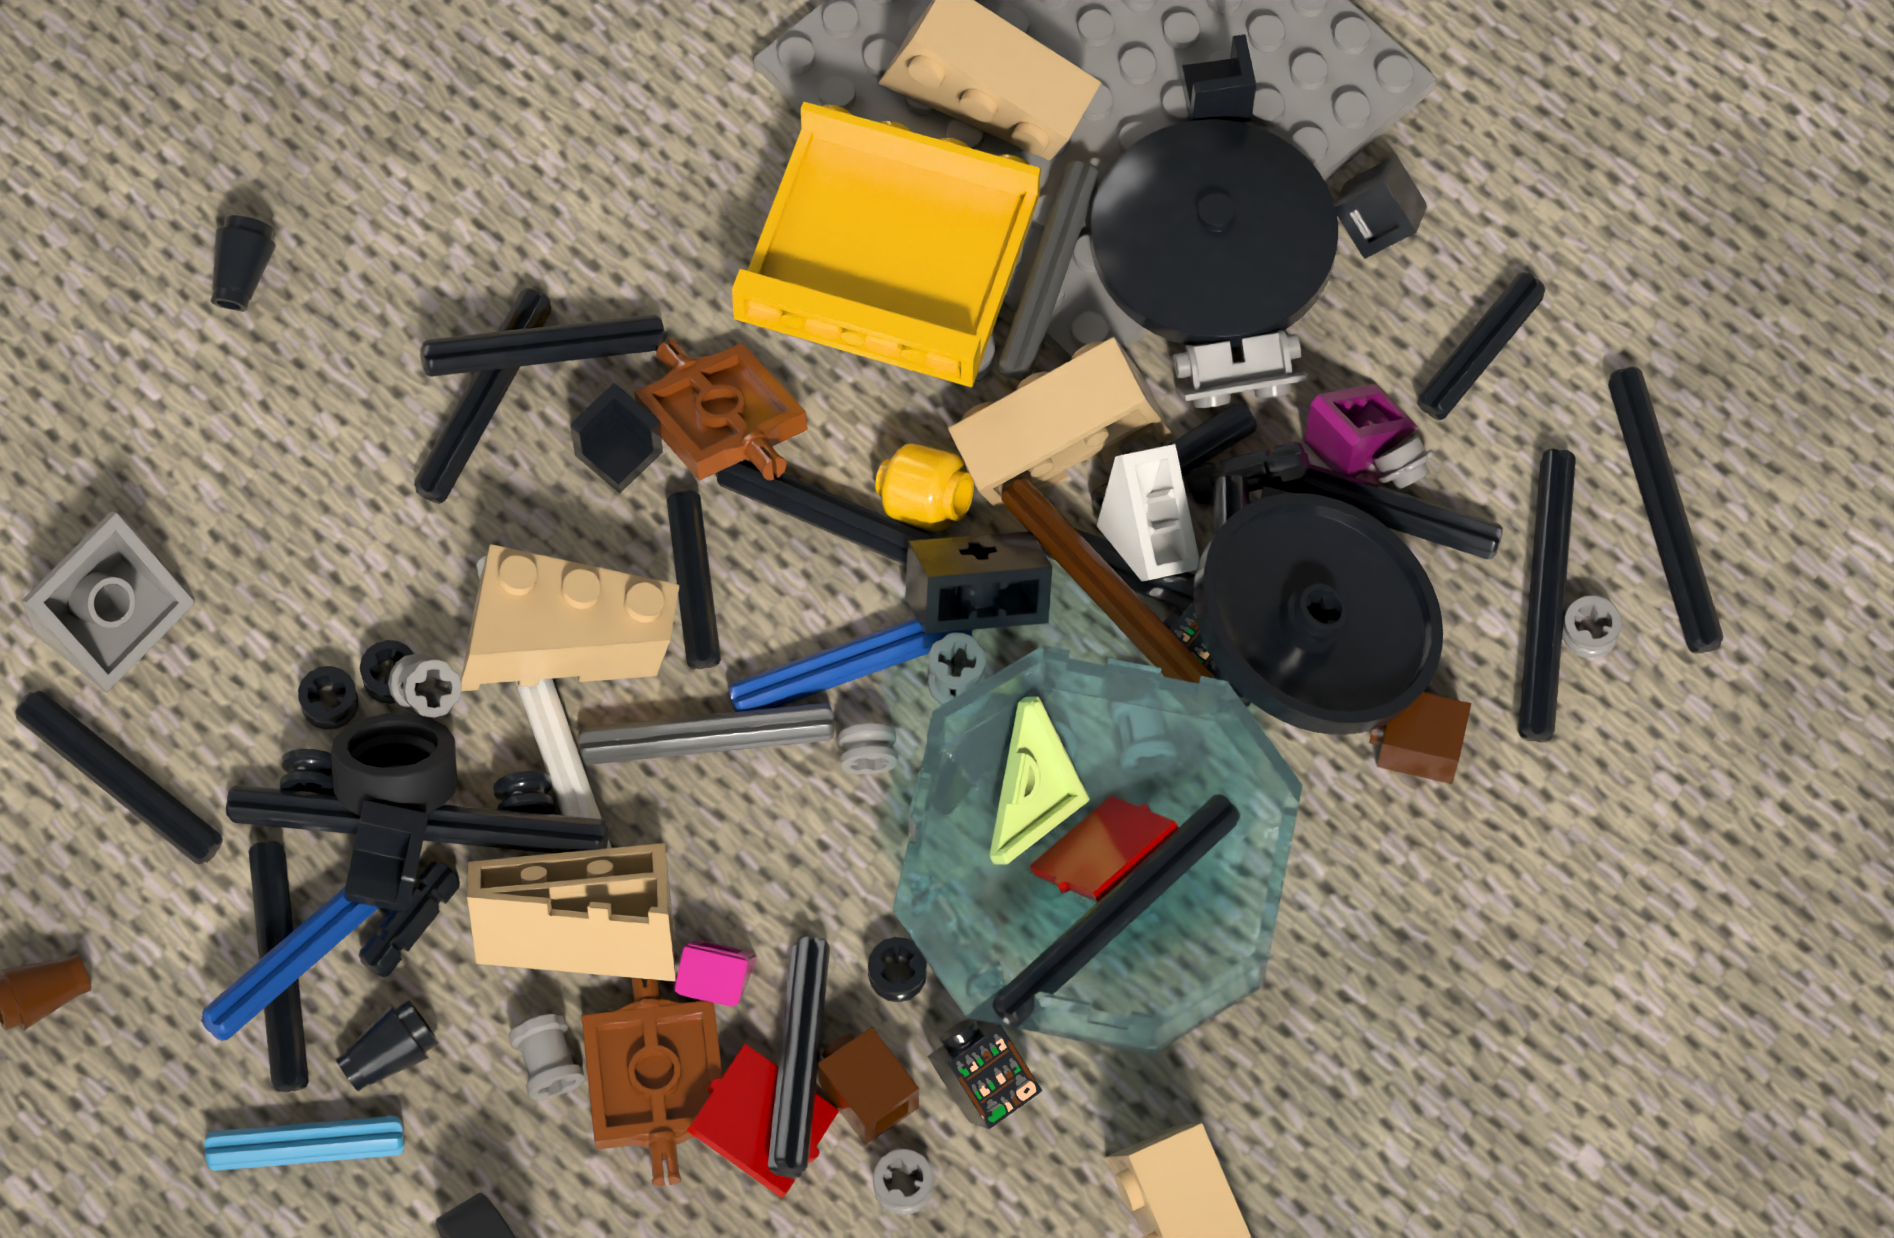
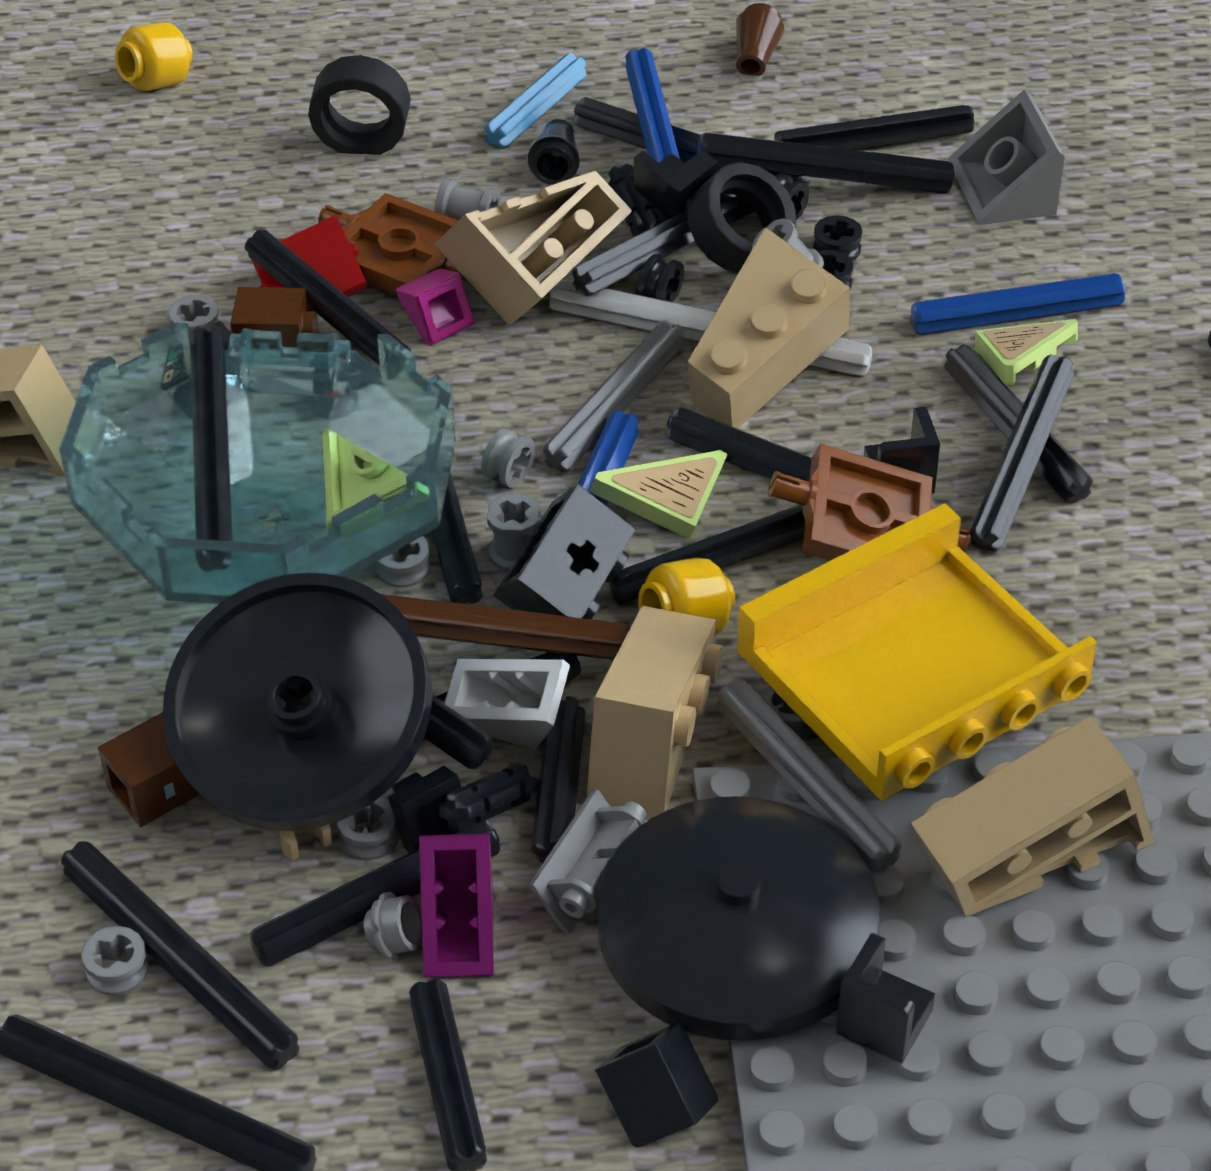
camera: 130 degrees right, 20 degrees down
(238, 759) = (830, 162): none -> black axle
(309, 489) = (1017, 303): none -> blue axle
(385, 441) = (1022, 346): none -> yellowish green tile
(797, 595) = (665, 490): none -> tile
(1103, 848) = (271, 488): red piece -> none

